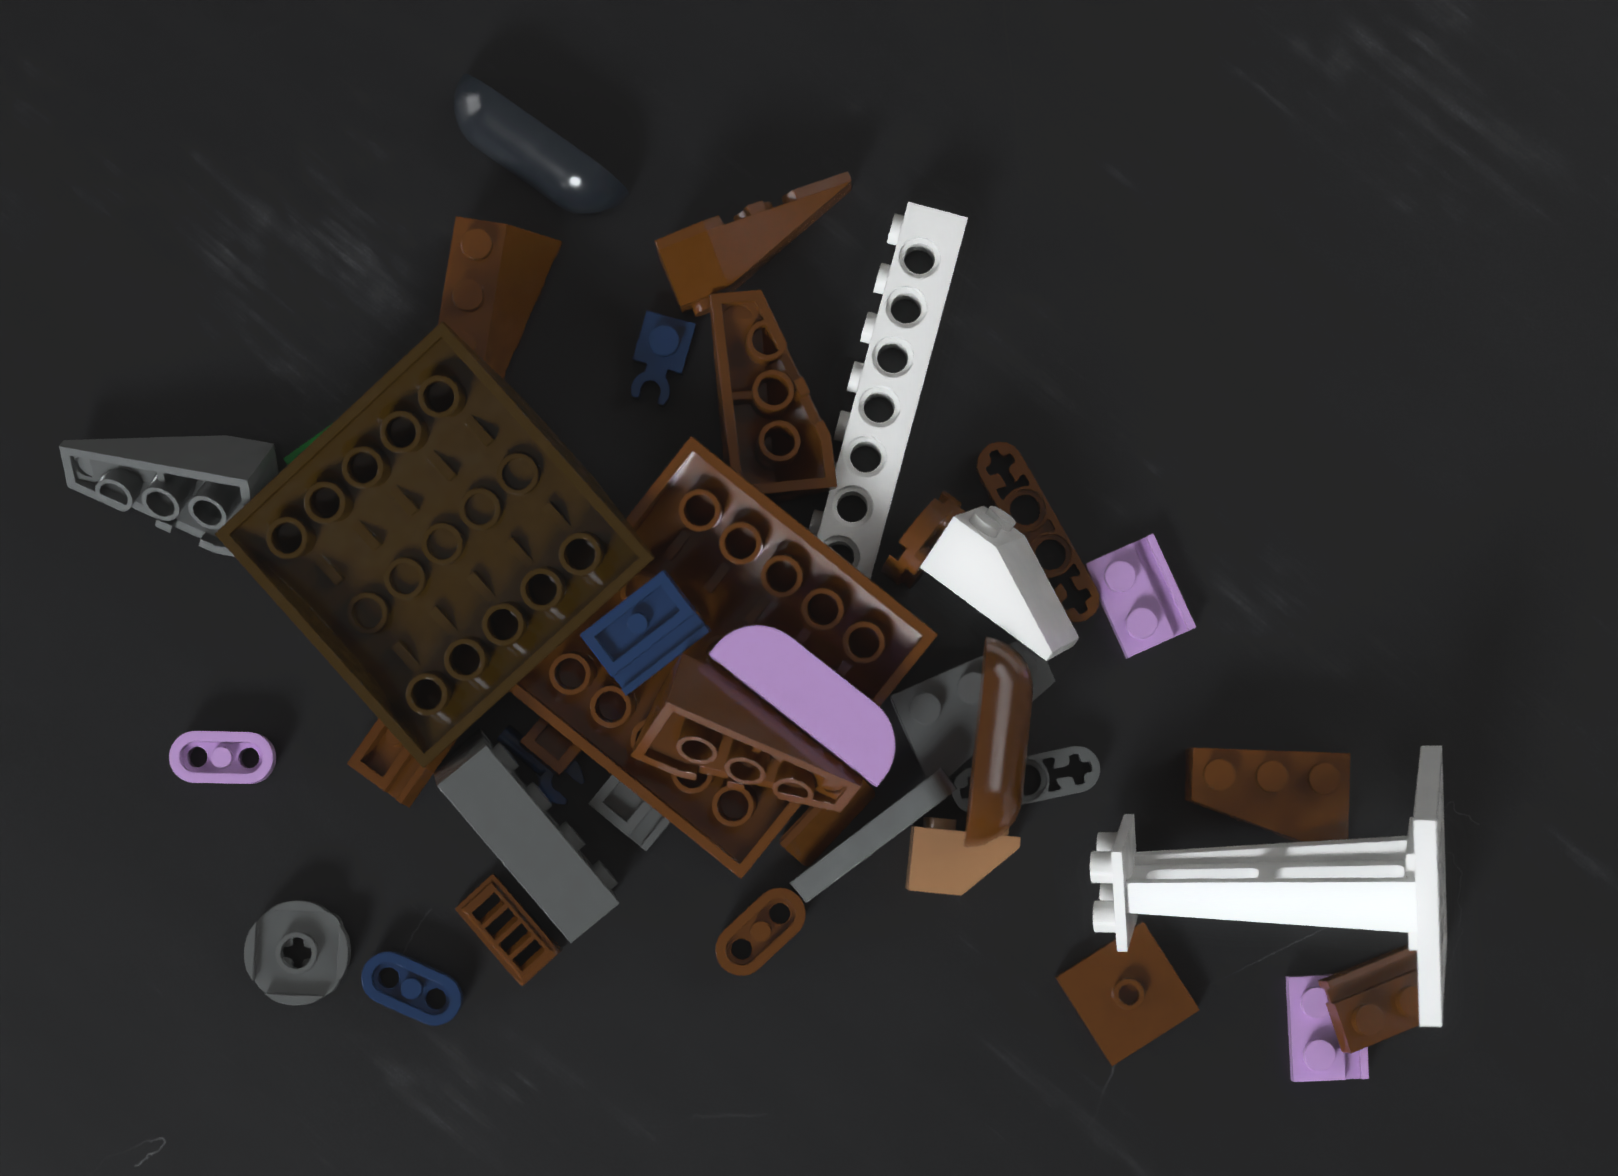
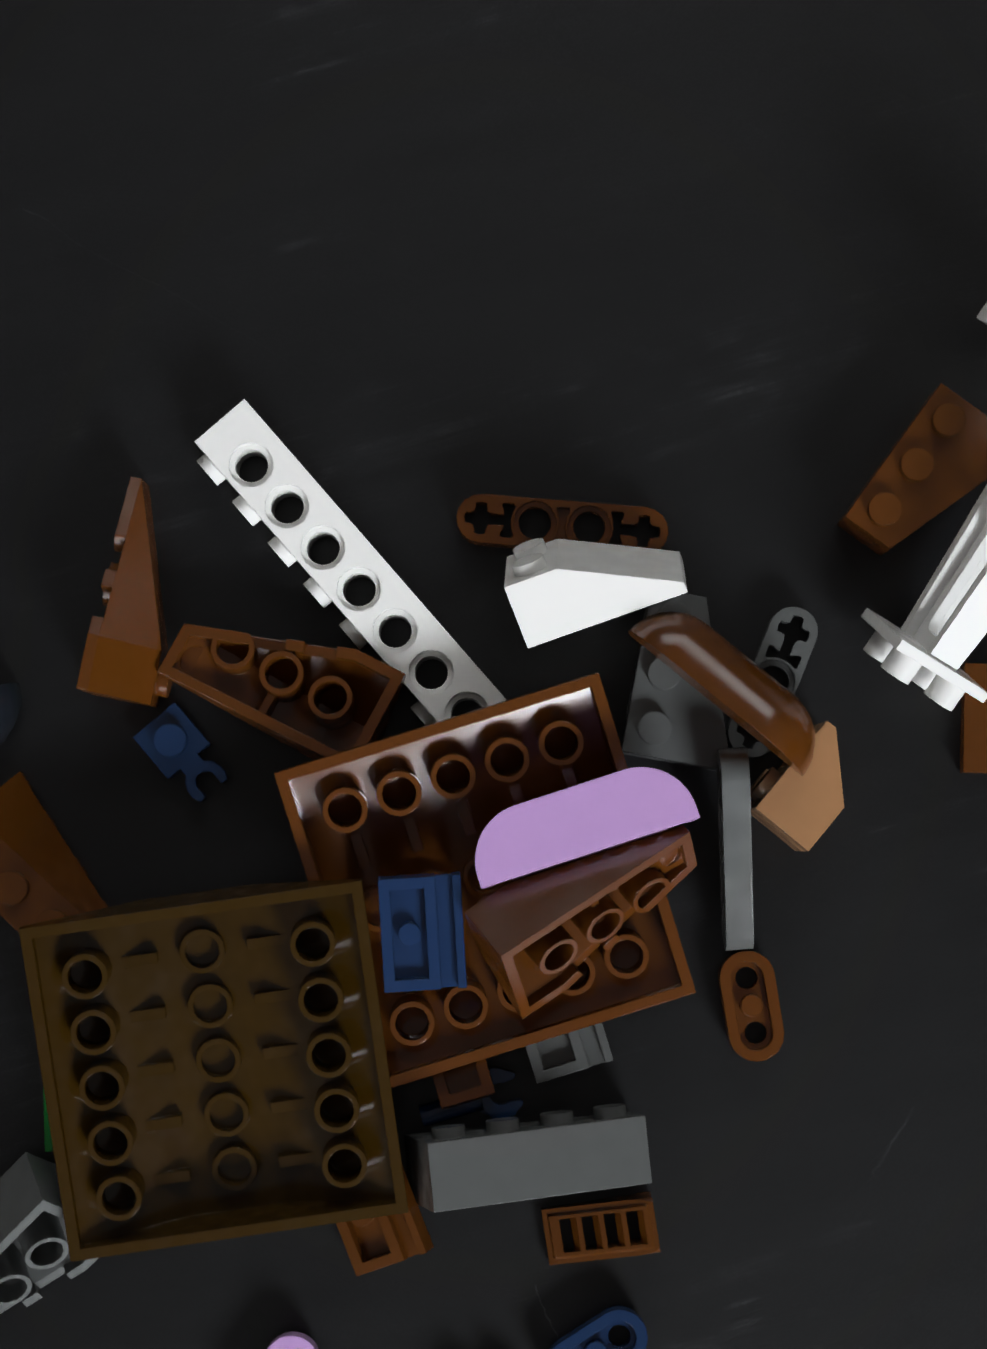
camera: 55 degrees left, 0 degrees up
(820, 827) = (694, 895): reddish brown slope -> none
(920, 540) = (503, 638): reddish brown plate -> none
(1140, 596) = (677, 474): lavender plate -> none

